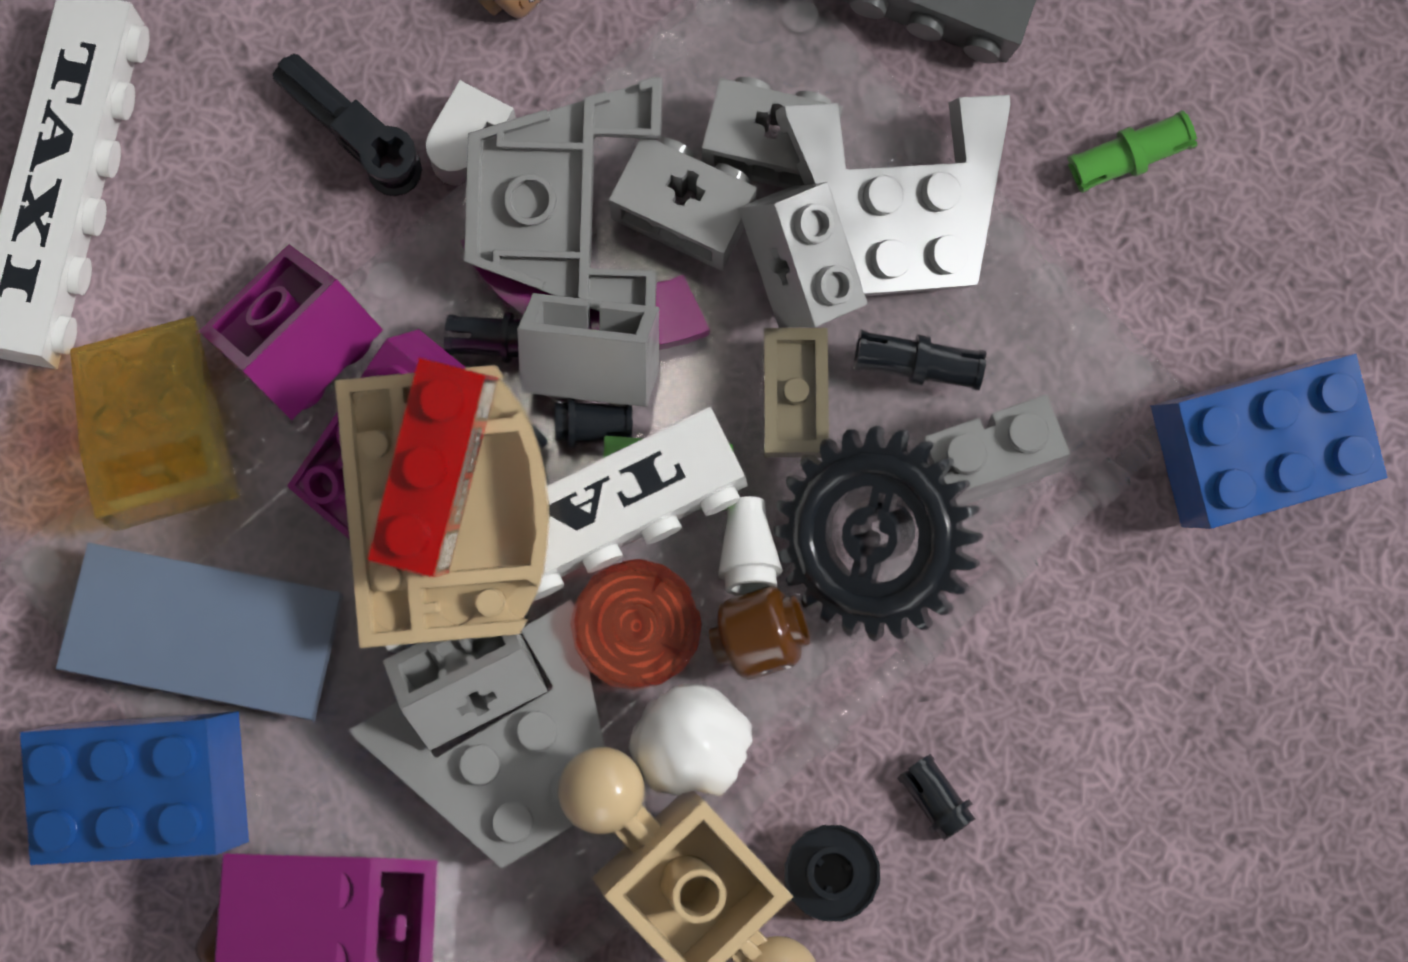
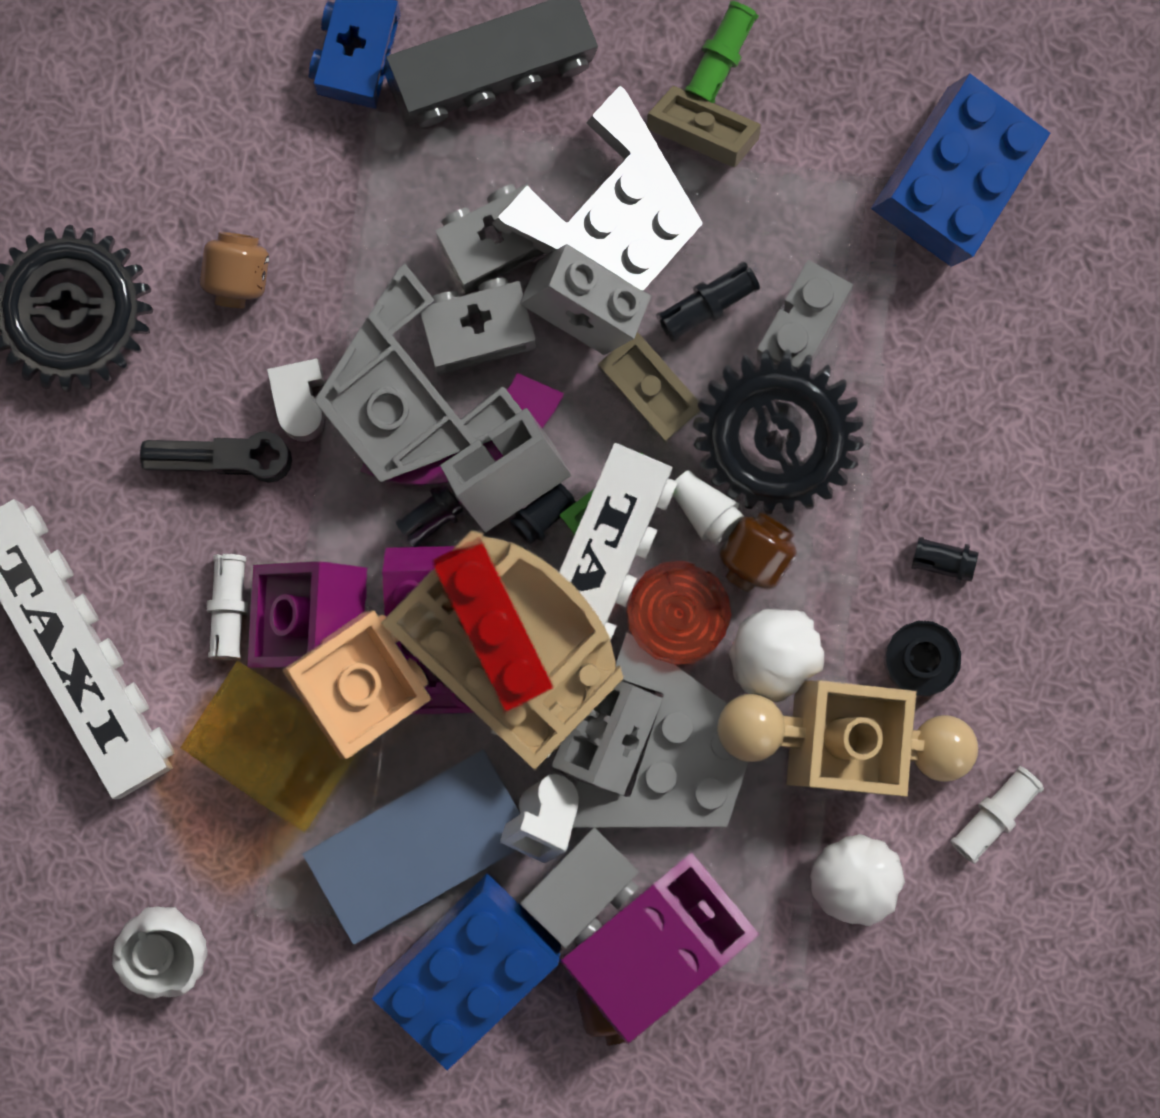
camera: 40 degrees left, 5 degrees up
(234, 265) = (227, 607): none -> white pin
(265, 421) = (358, 683): none -> light nougat plate
(309, 803) = (581, 889): none -> light grey piece
(334, 708) = (544, 819): none -> white leg
(1057, 201) = (703, 126): none -> dark tan plate

